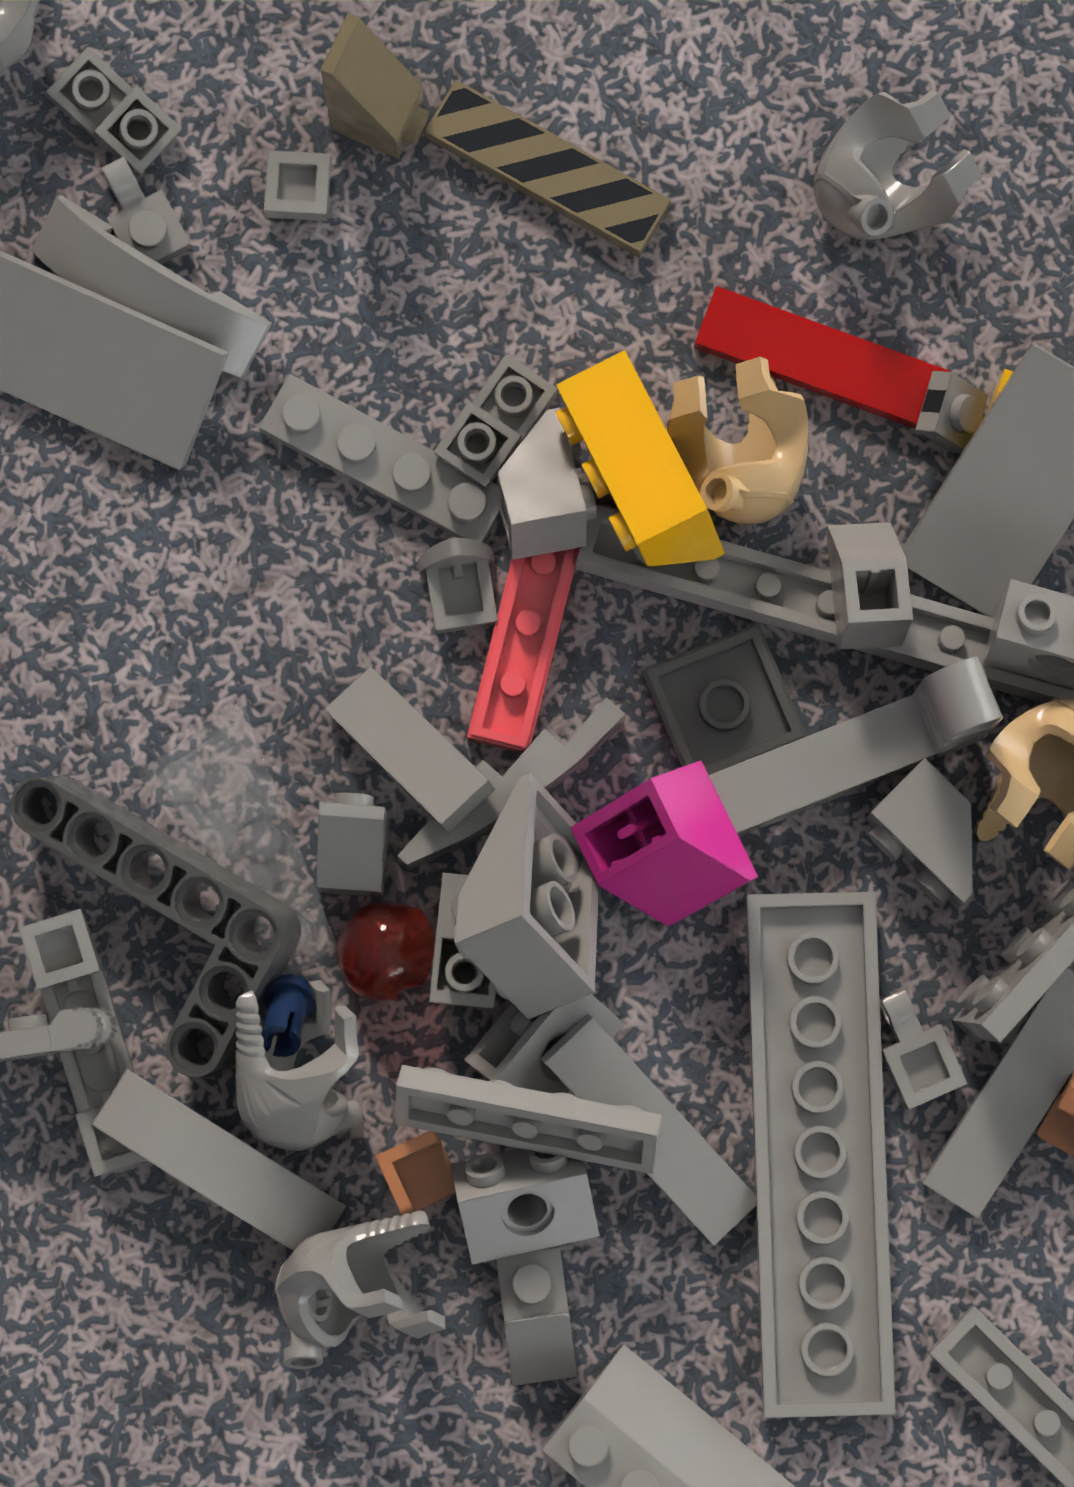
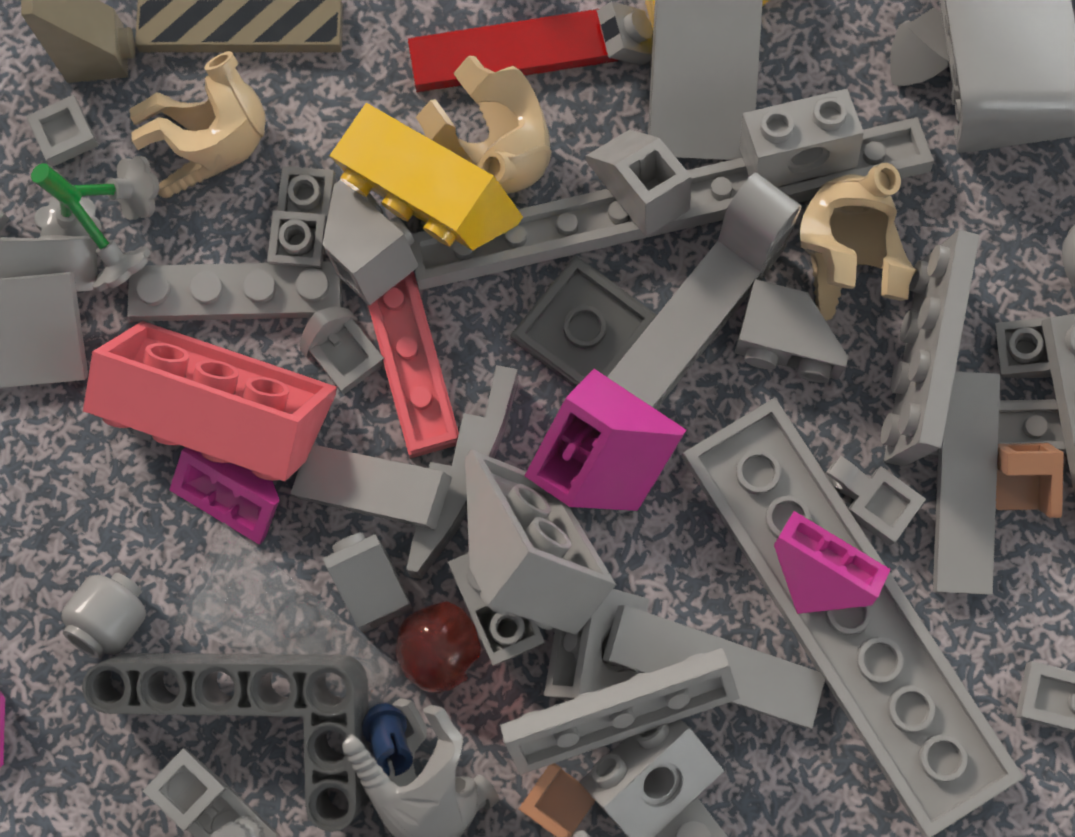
camera: 25 degrees left, 5 degrees down
(71, 727) = (103, 614): none -> light grey head
(259, 286) = (75, 216): none -> light grey plant
(267, 665) = (226, 493): none -> dark pink slope
(295, 565) = (207, 399): none -> coral slope
(472, 275) = (219, 130): none -> tan piece
(819, 1096) = (825, 570): none -> dark pink slope

